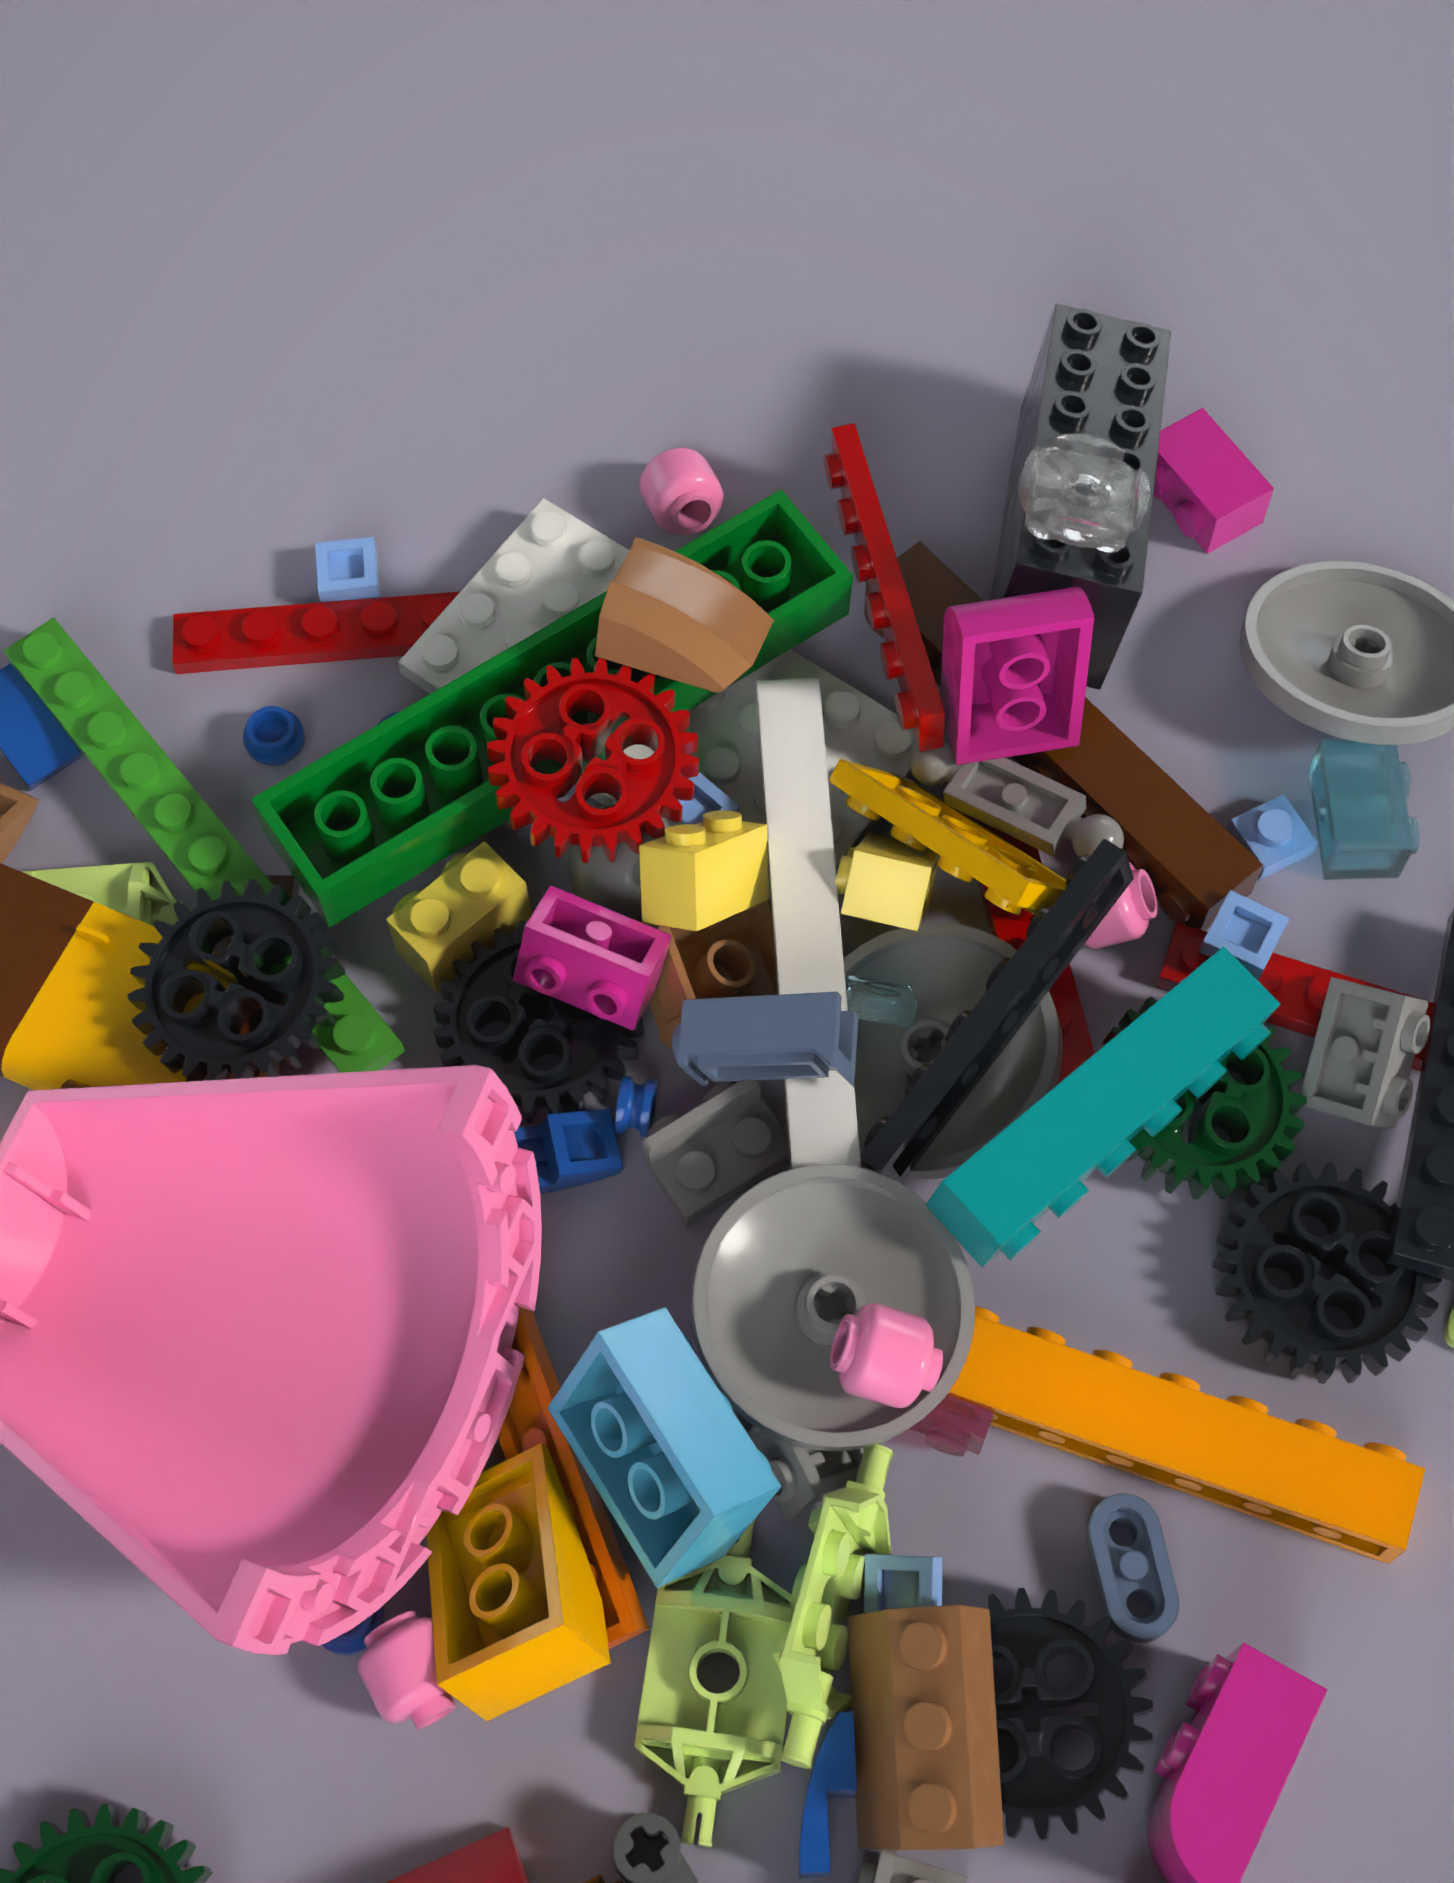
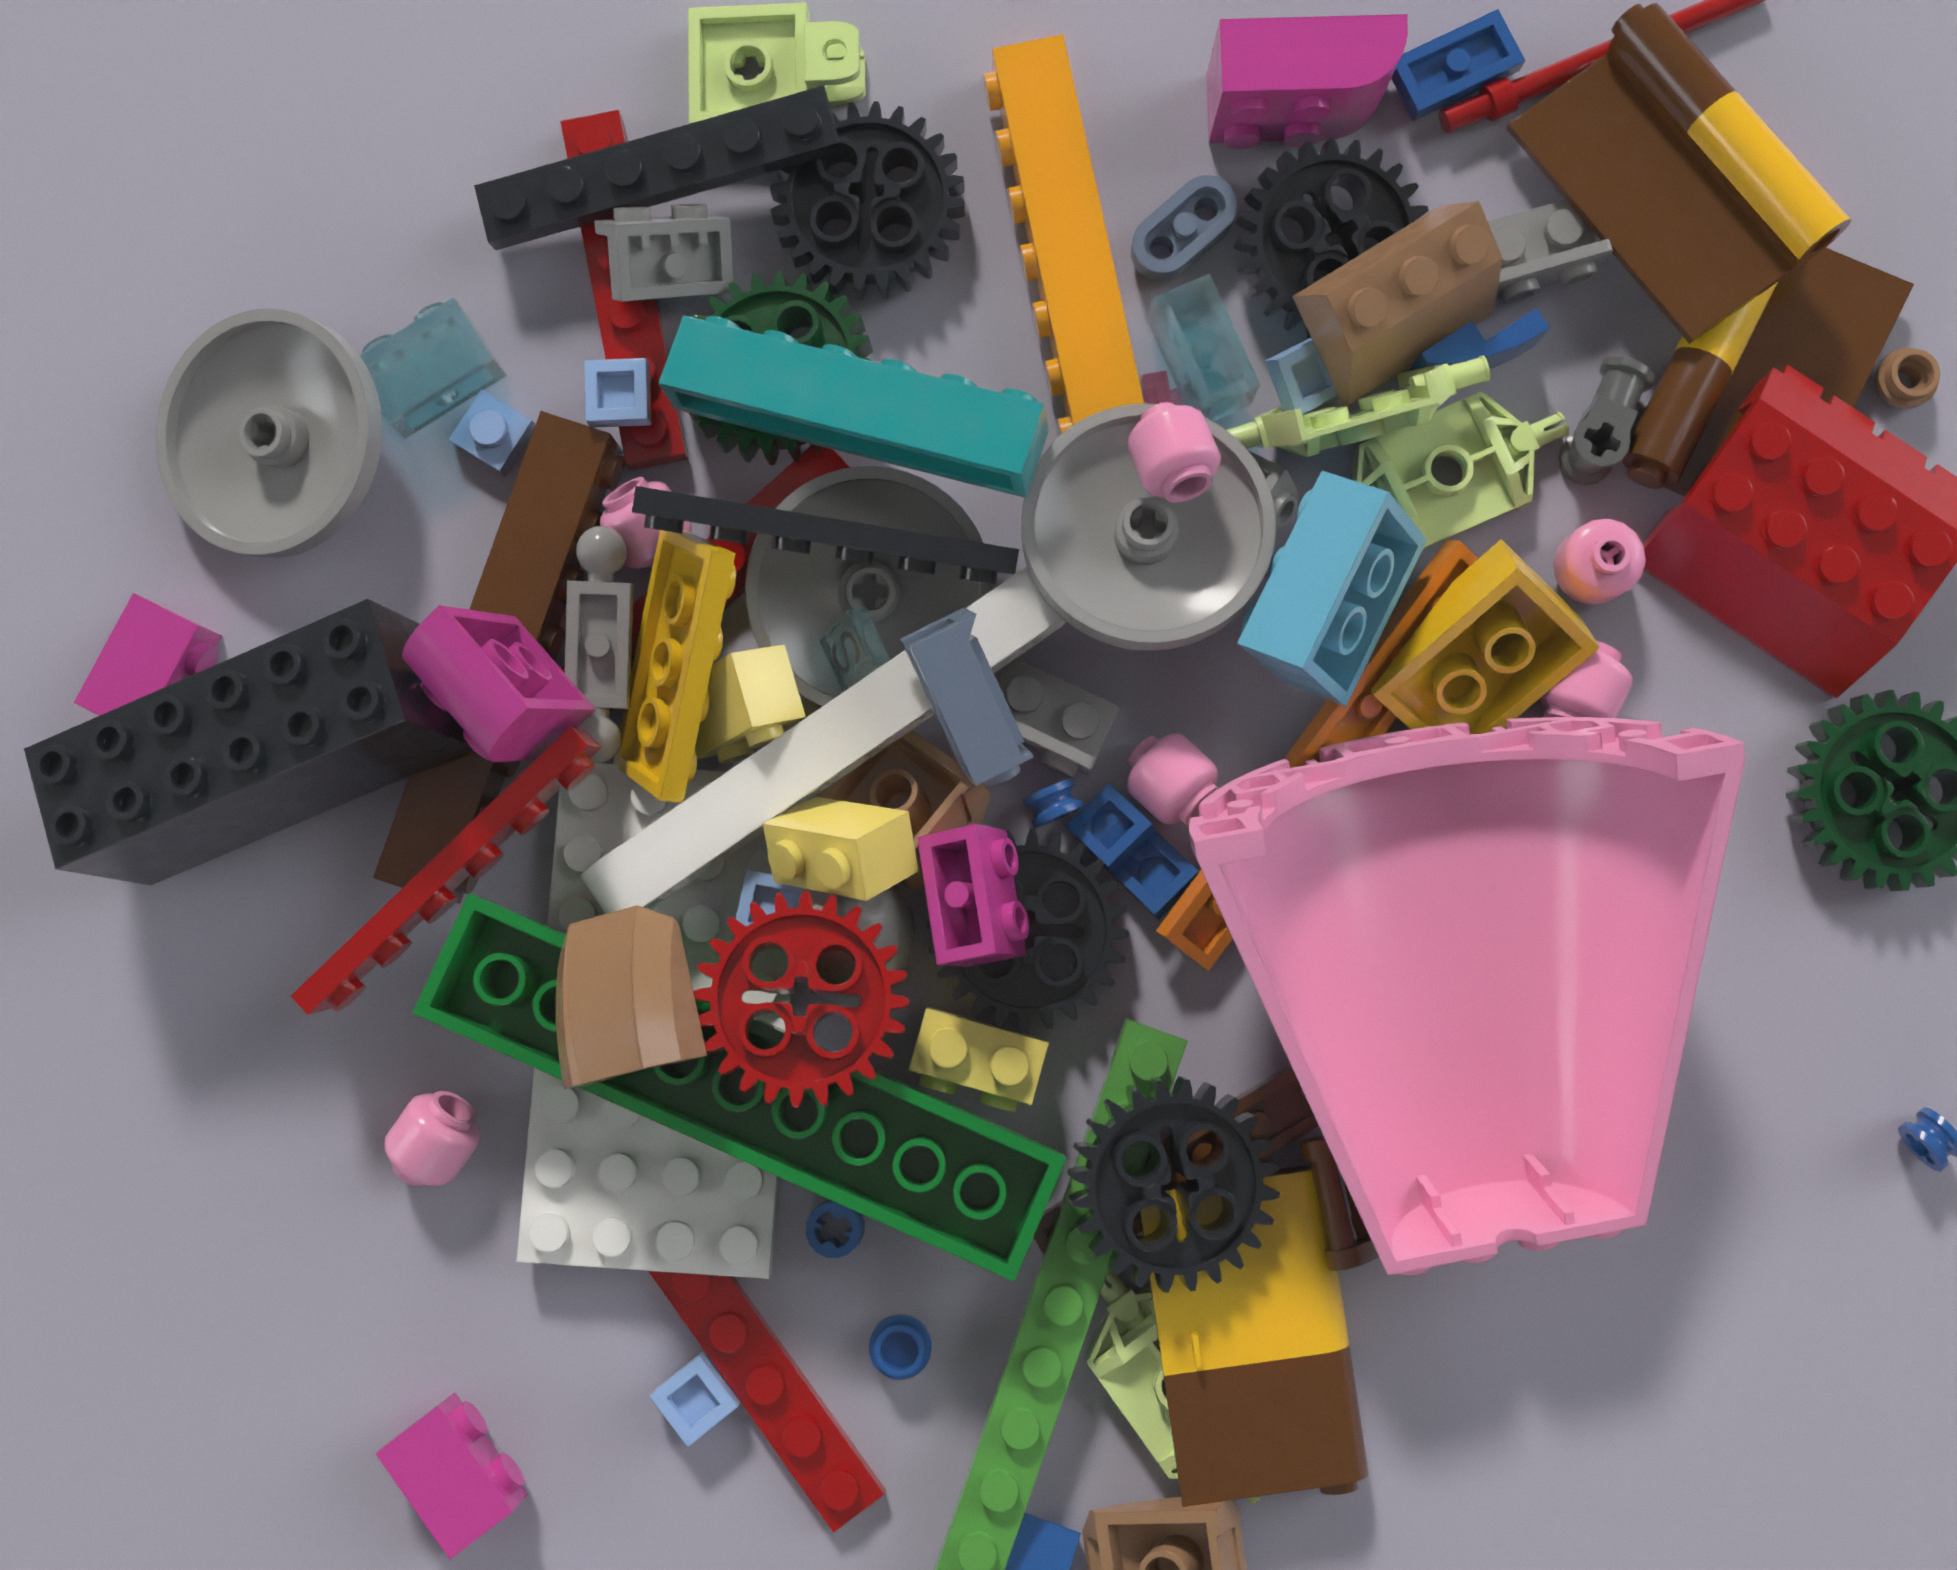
camera: 120 degrees left, 20 degrees up
(417, 384) = (453, 1474): none -> dark pink brick
(532, 1796) = (1599, 561): none -> bright pink head
(588, 1220) = (1171, 777): none -> bright pink head
(986, 1492) = (1203, 349): none -> clear light blue brick
(1061, 513) = (331, 708): clear plate -> none

